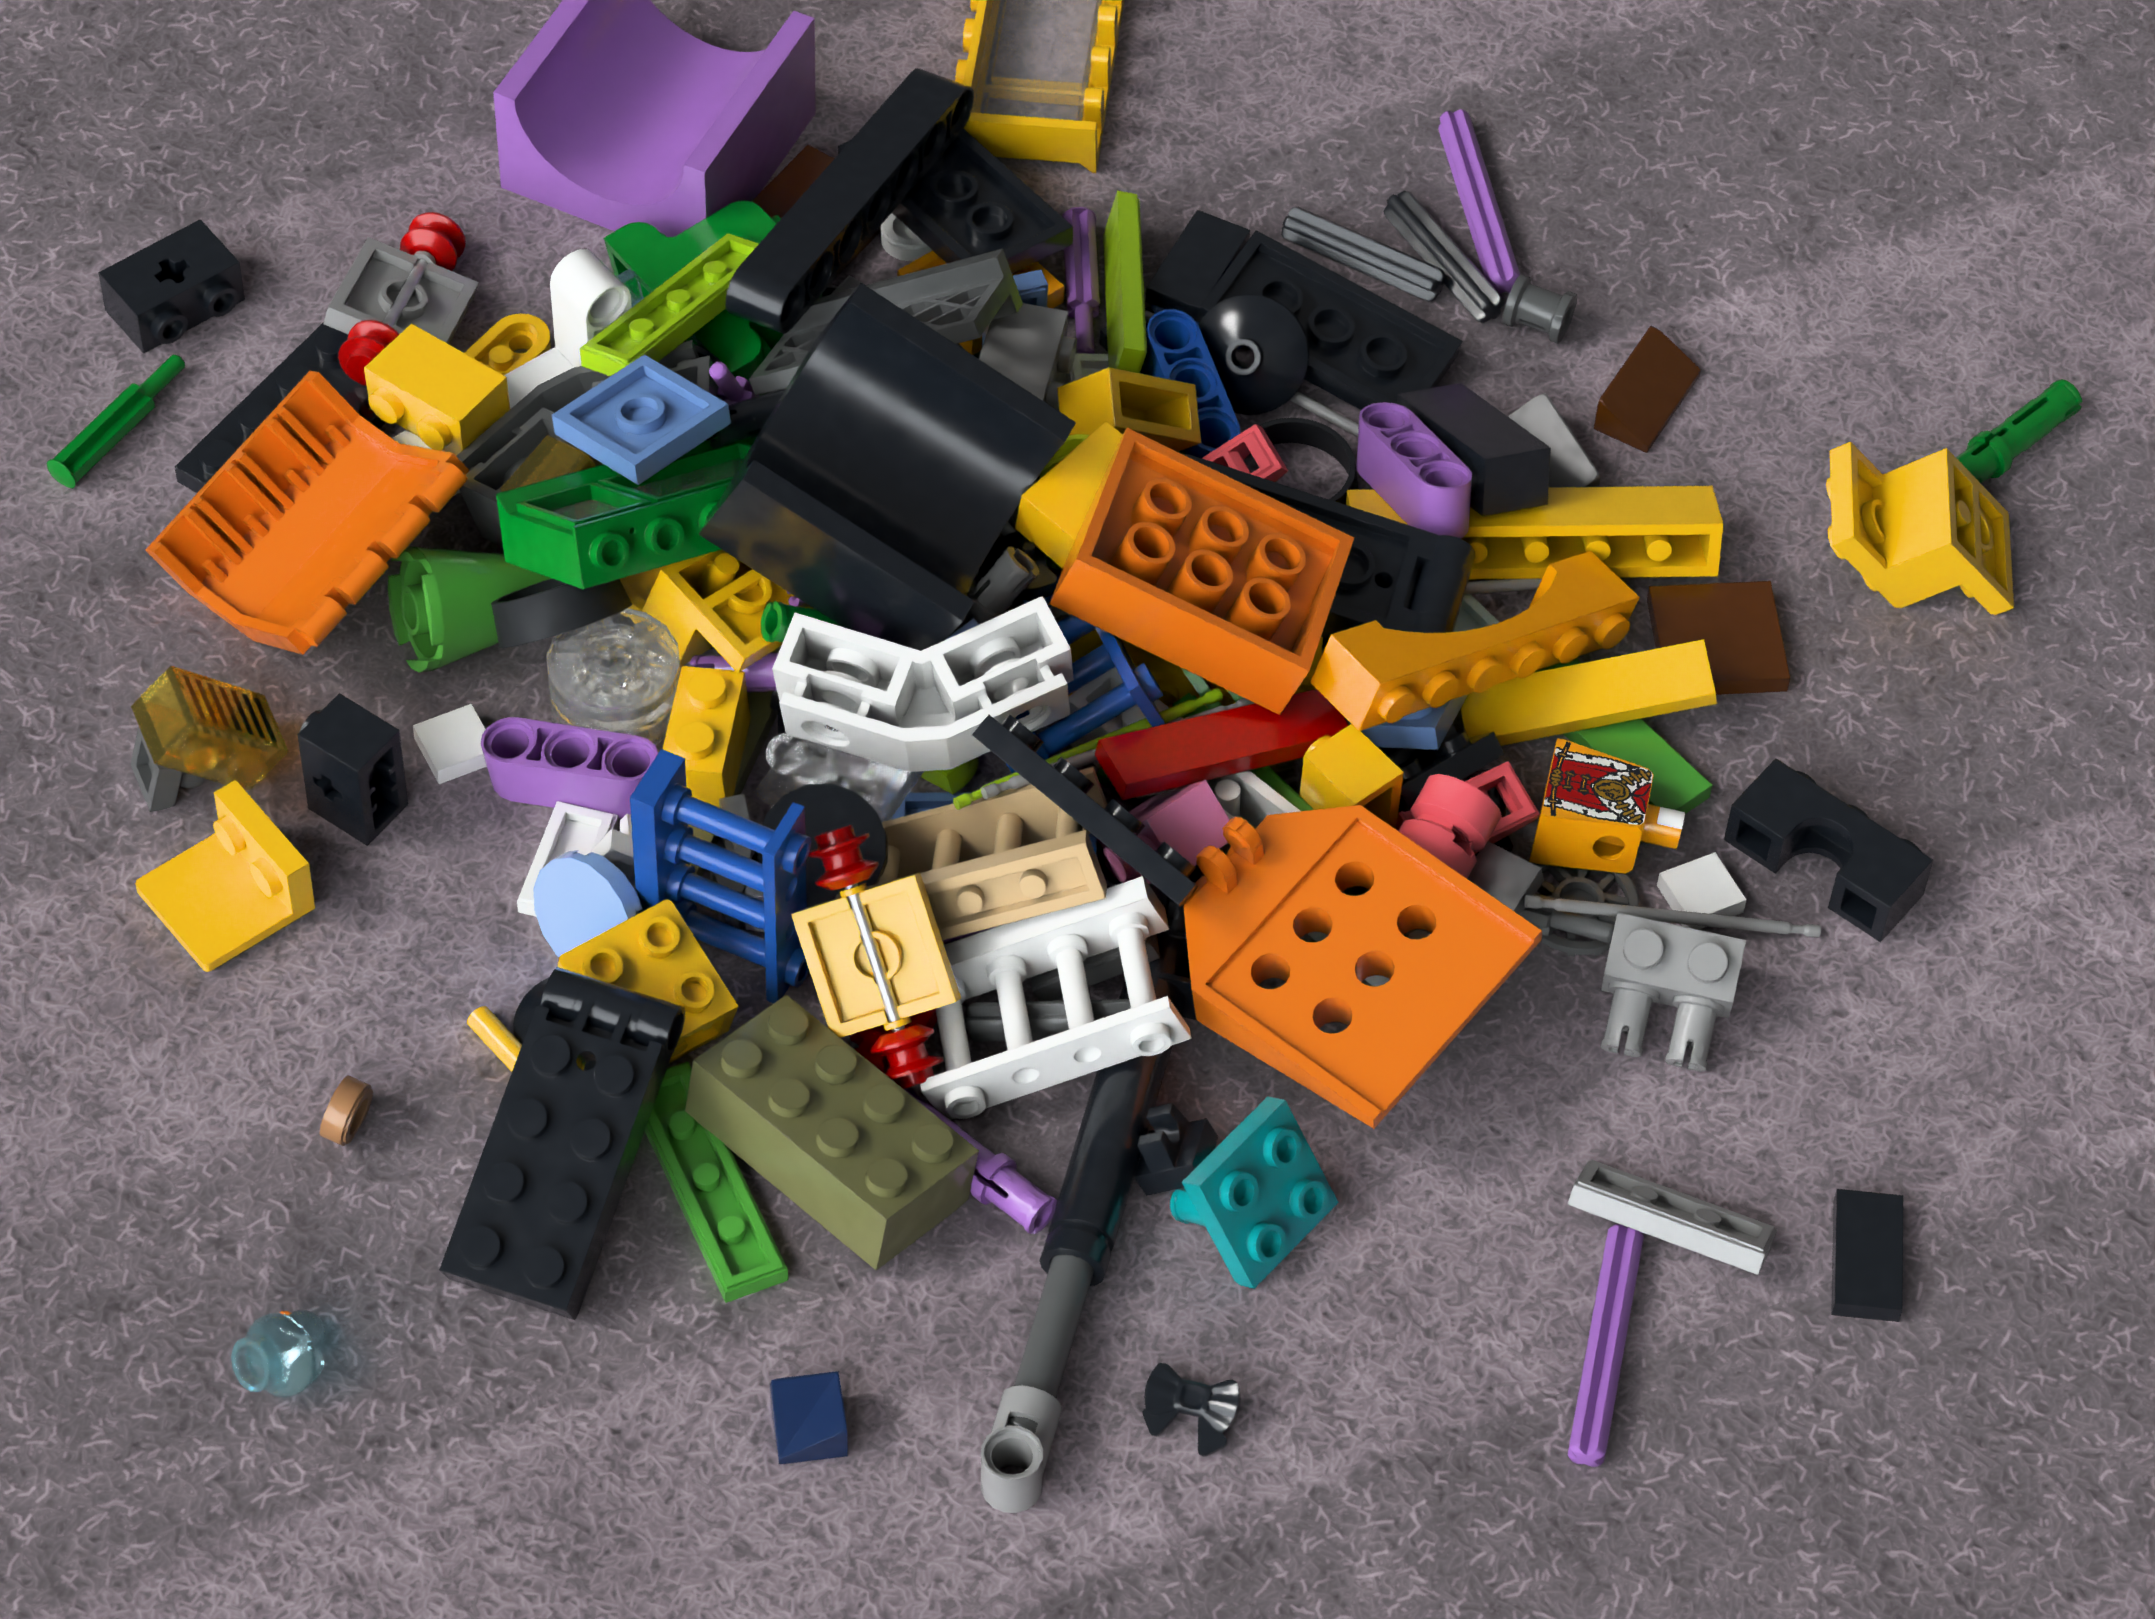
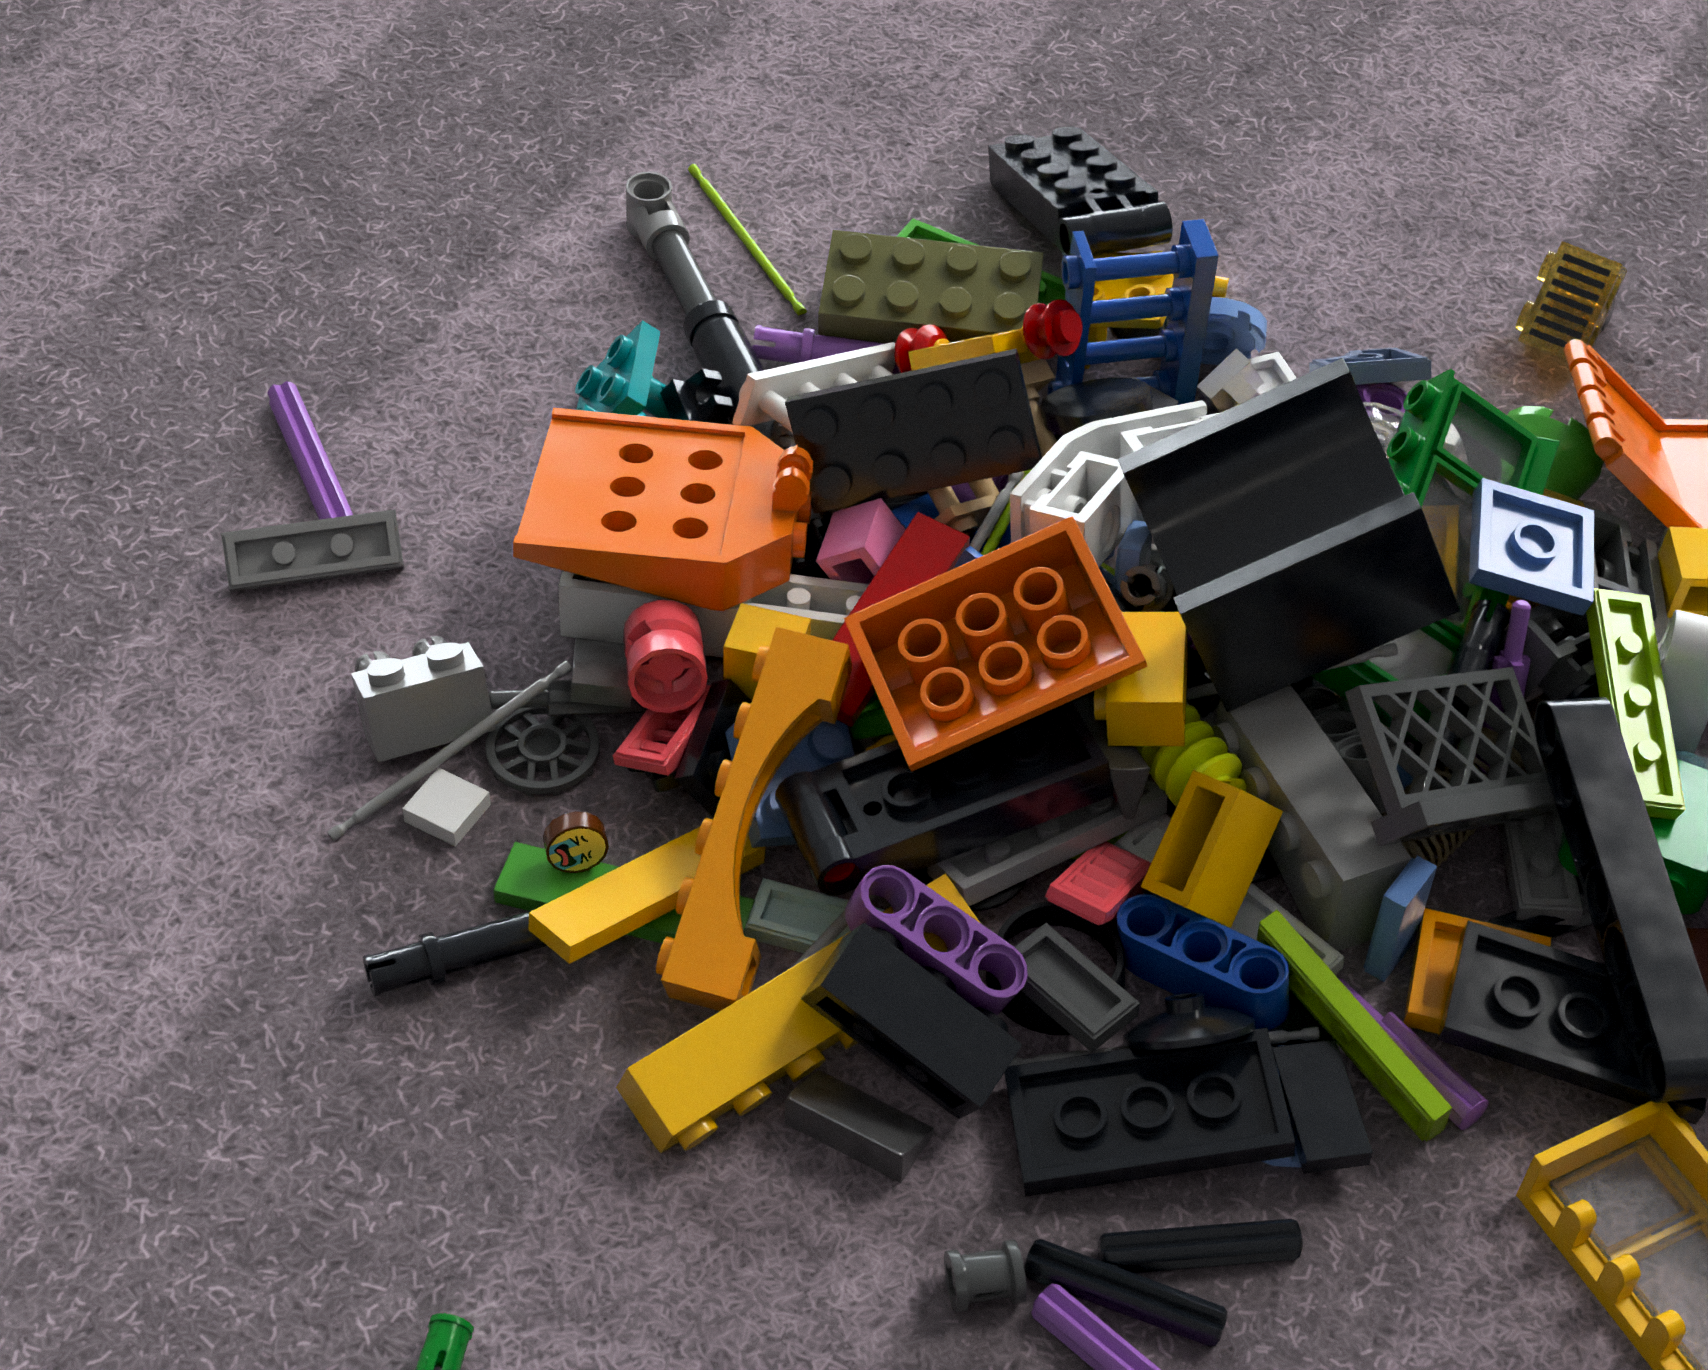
camera: 145 degrees right, 5 degrees down
(230, 885) = (1455, 268): yellow bracket -> none
(280, 1353) = (1128, 67): clear light blue animal -> none
(346, 1110) = (1235, 191): medium nougat tile -> none
(352, 768) = (1463, 326): black brick -> none
(473, 791) = (1381, 365): none -> sand blue tile
(808, 1417) = (797, 187): dark blue slope -> none
(921, 1398) = (747, 240): none -> lime piece
(1213, 1405) = (548, 301): black piece -> none
(1318, 423) = (1074, 989): none -> dark grey tile
(1599, 812) = (568, 775): torso -> none
(1629, 745) = (575, 842): none -> tile
(1646, 391) = (818, 1258): reddish brown slope -> none
(1737, 629) = (576, 1039): reddish brown tile -> none
(1760, 747) = (437, 956): none -> black pin
(1792, 816) = (403, 891): black arch -> none
(1867, 1255) = (149, 610): black tile -> none
(1920, 529) = (443, 1214): yellow bracket -> none

